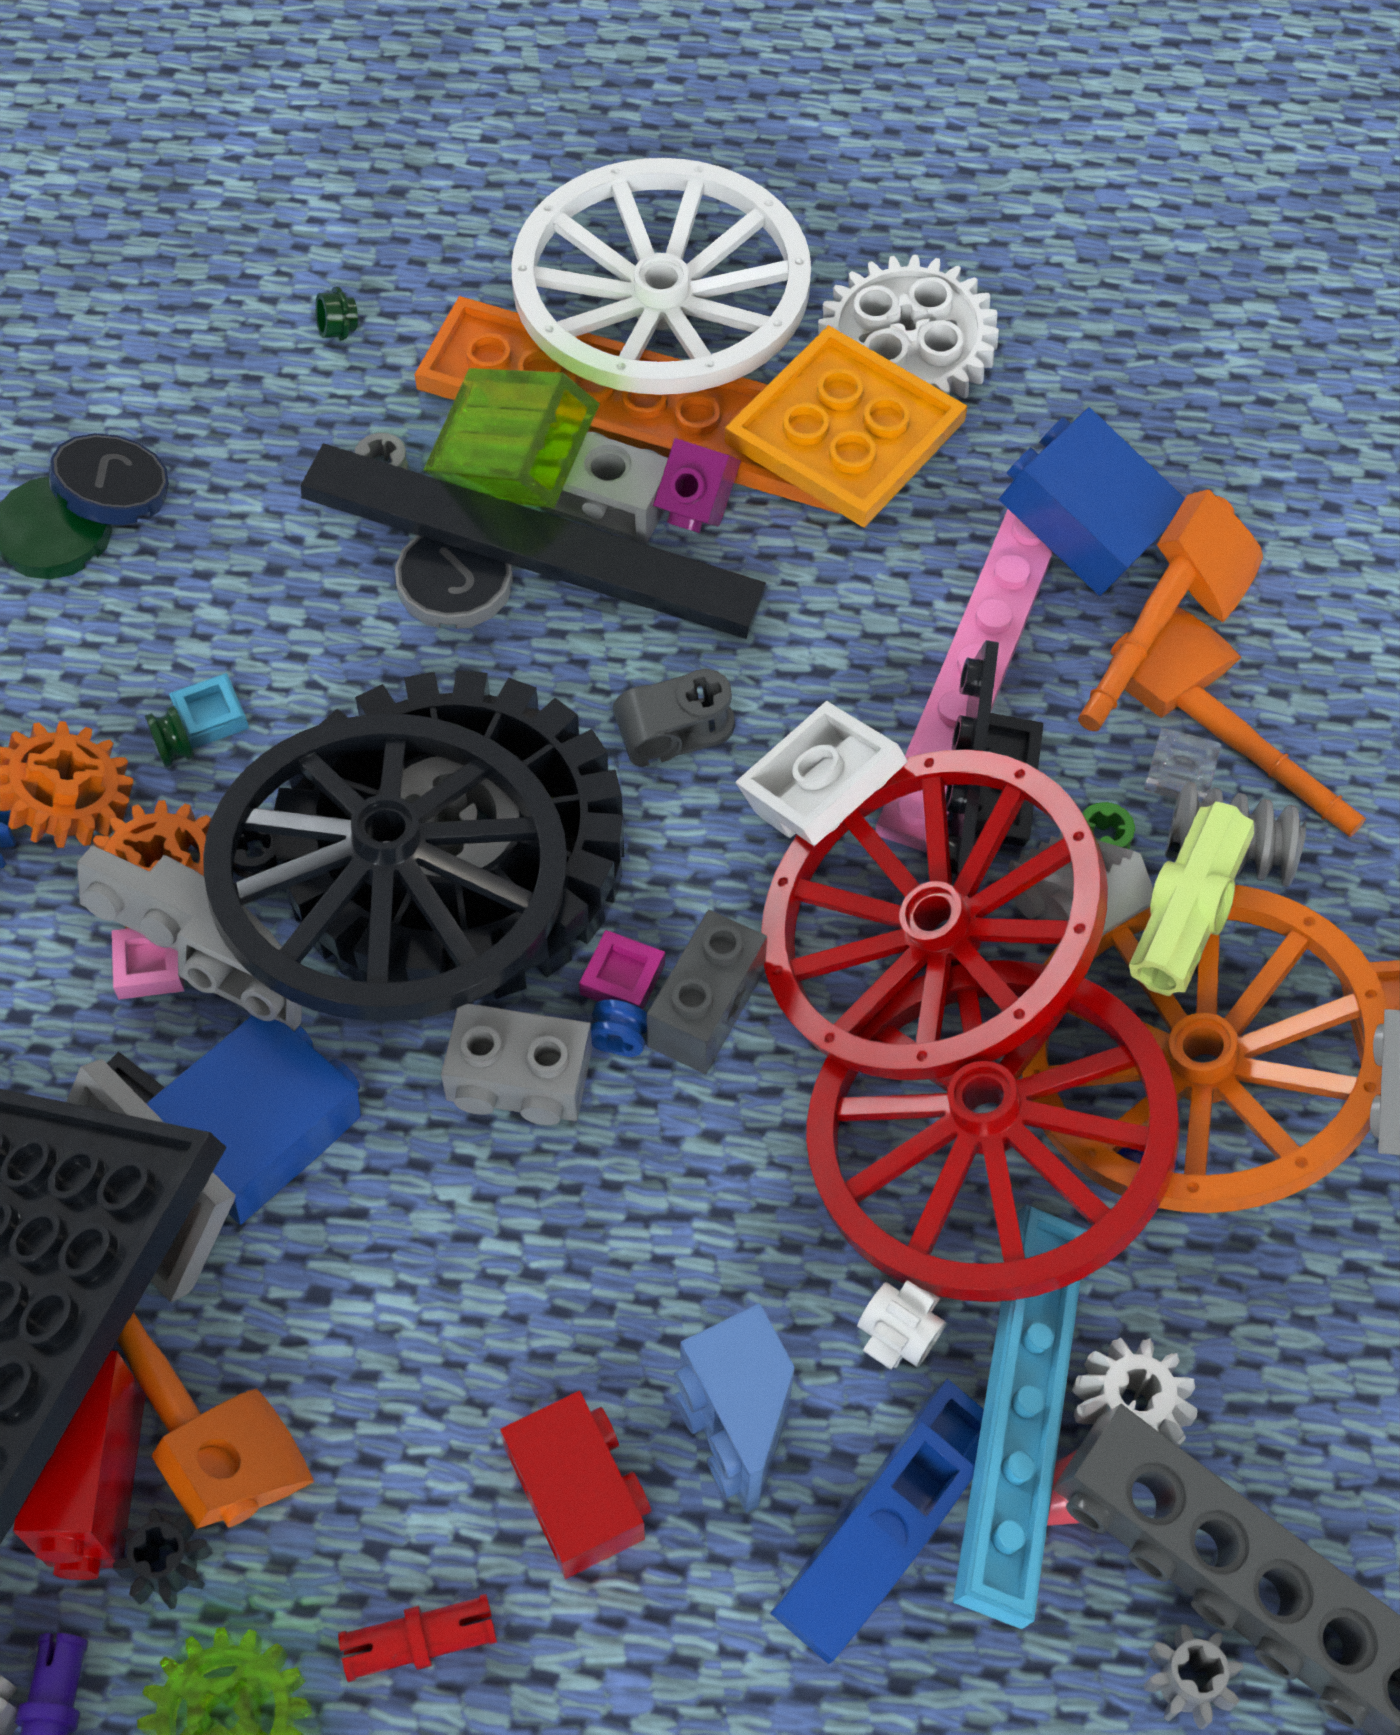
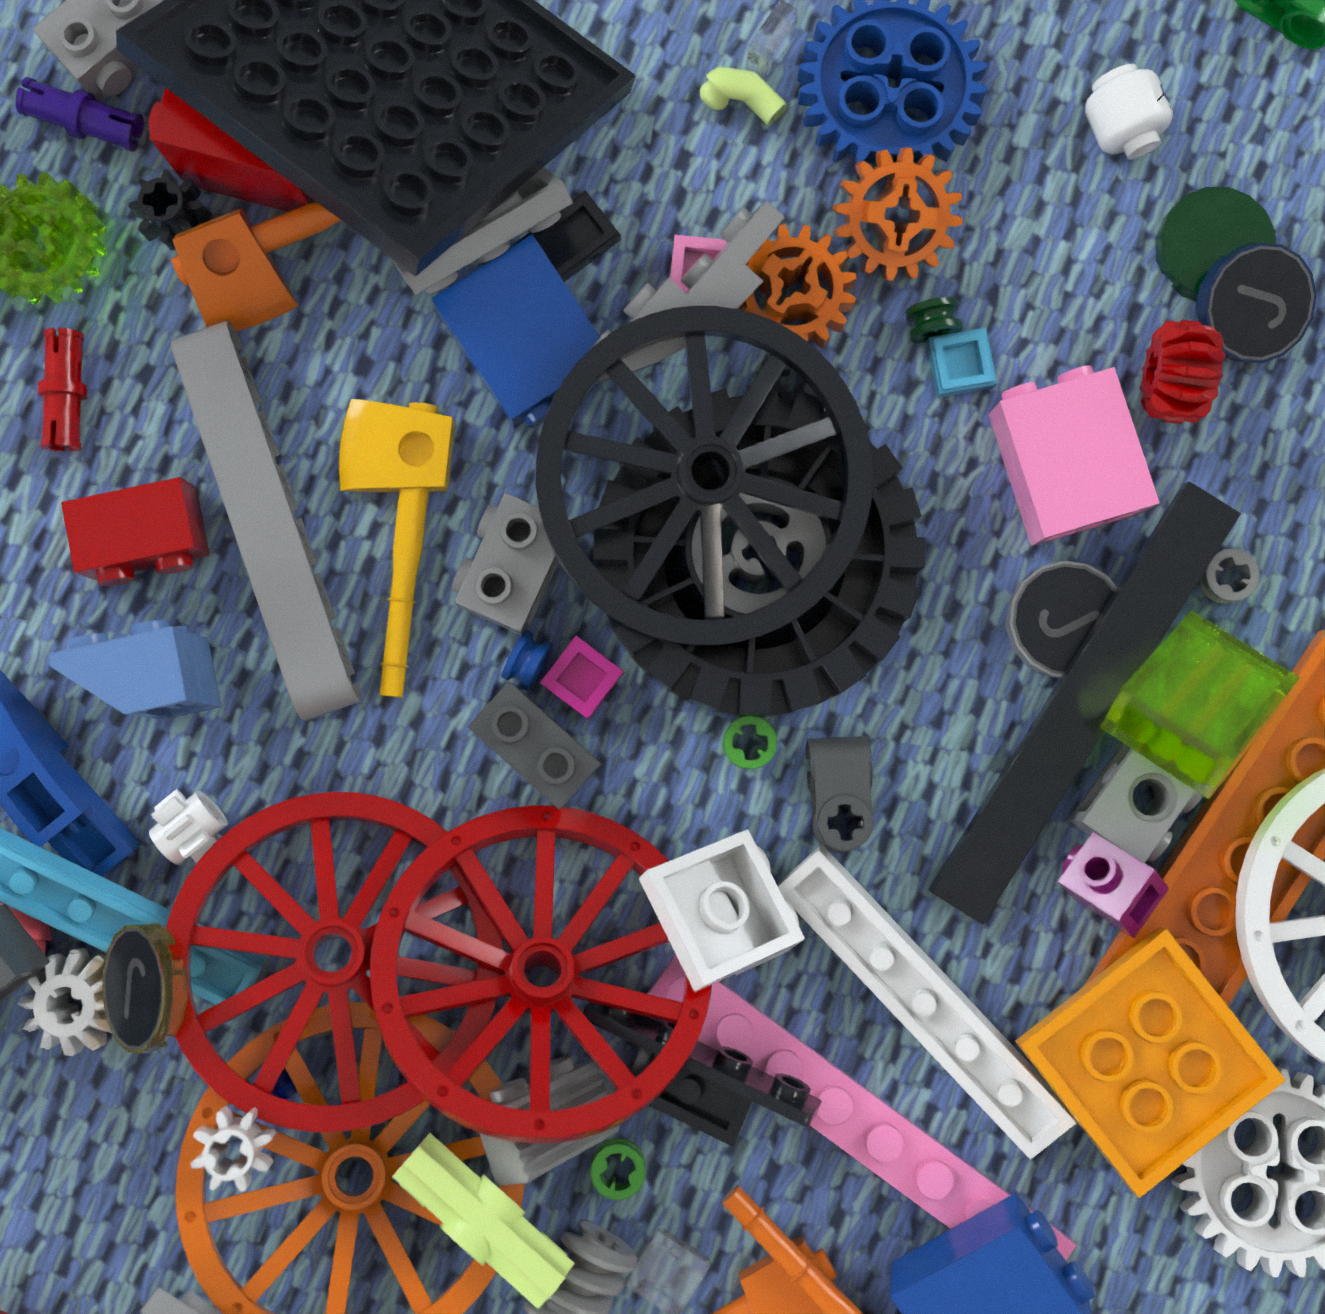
camera: 105 degrees right, 25 degrees up
(190, 516) = (1182, 371): none -> red gear
(289, 594) = (1072, 454): none -> bright pink brick
(413, 1210) = (409, 454): none -> yellow piece
(515, 1342) = (263, 521): none -> light grey beam
(659, 796) = (762, 729): none -> bright green bush
(849, 613) = (926, 1002): none -> white plate
(1087, 1283) = (143, 988): none -> tile
(1221, 1110) = (215, 1148): none -> white gear

